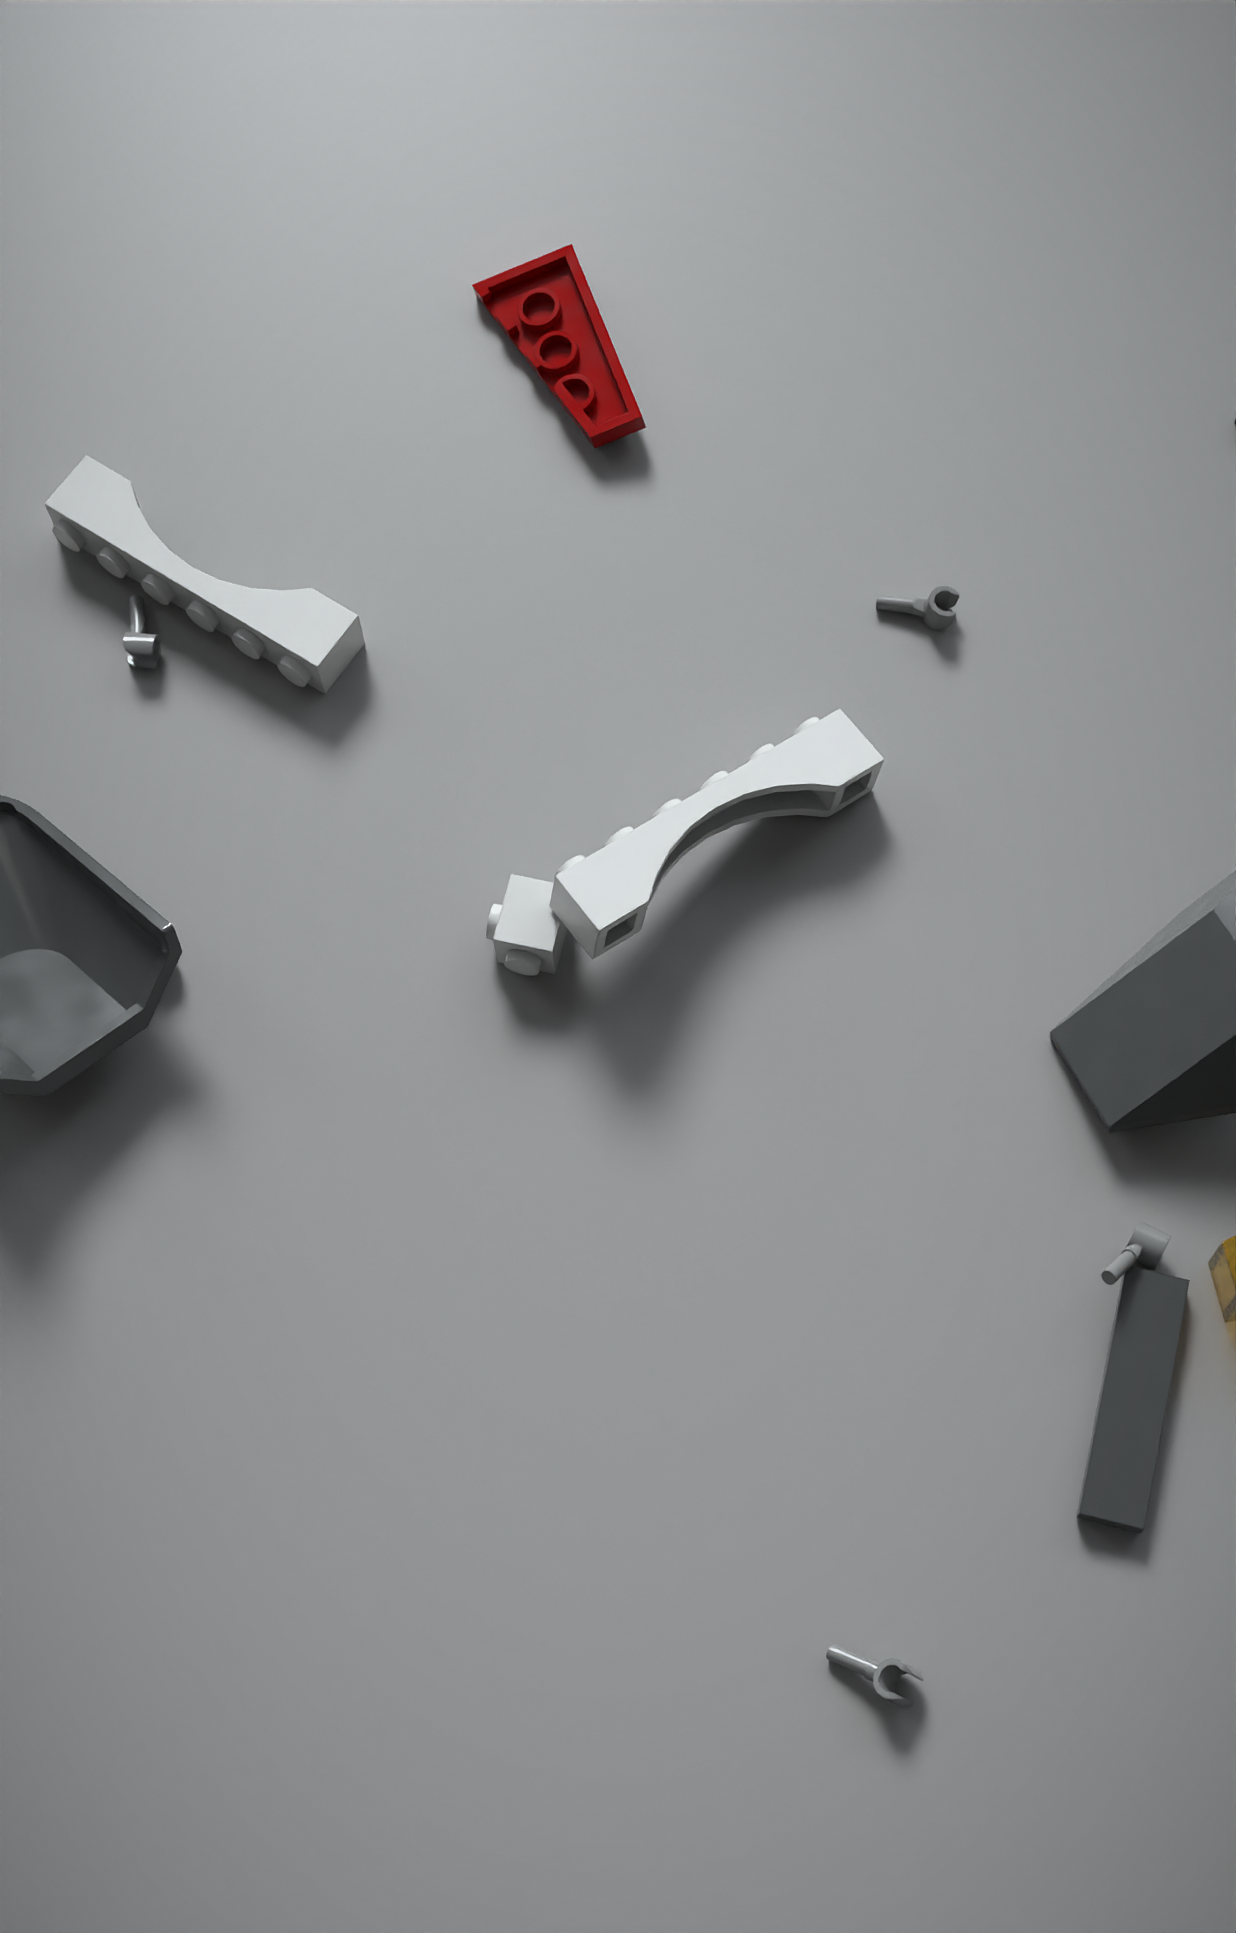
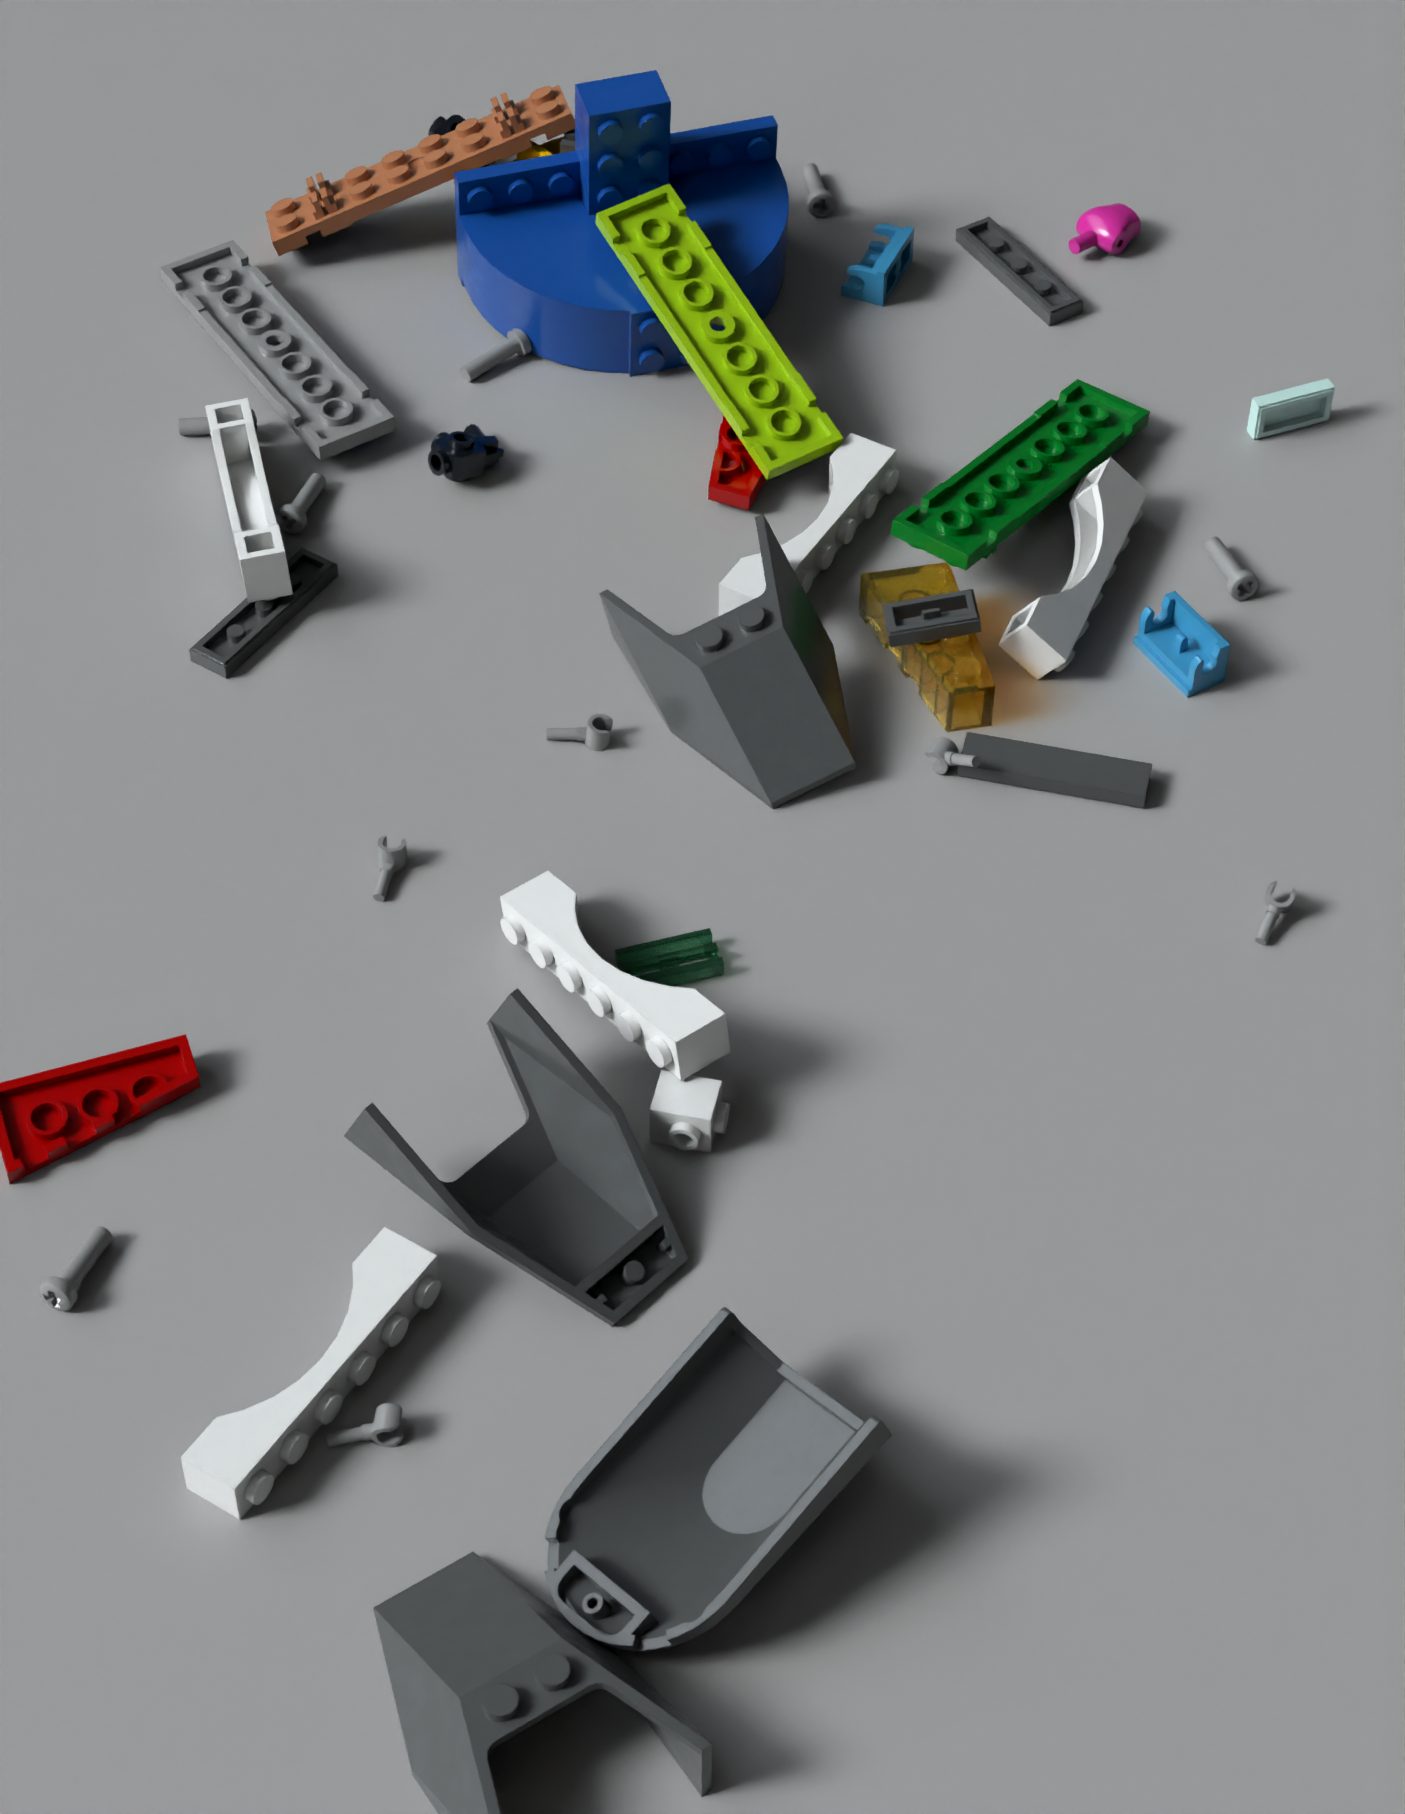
camera: 95 degrees left, 20 degrees down
(325, 348) = (60, 1291): none -> light grey piece
(394, 770) = (563, 1190): none -> dark grey windscreen
(762, 868) = (668, 955): none -> clear green tile
(1160, 808) = (595, 735): none -> light grey hand

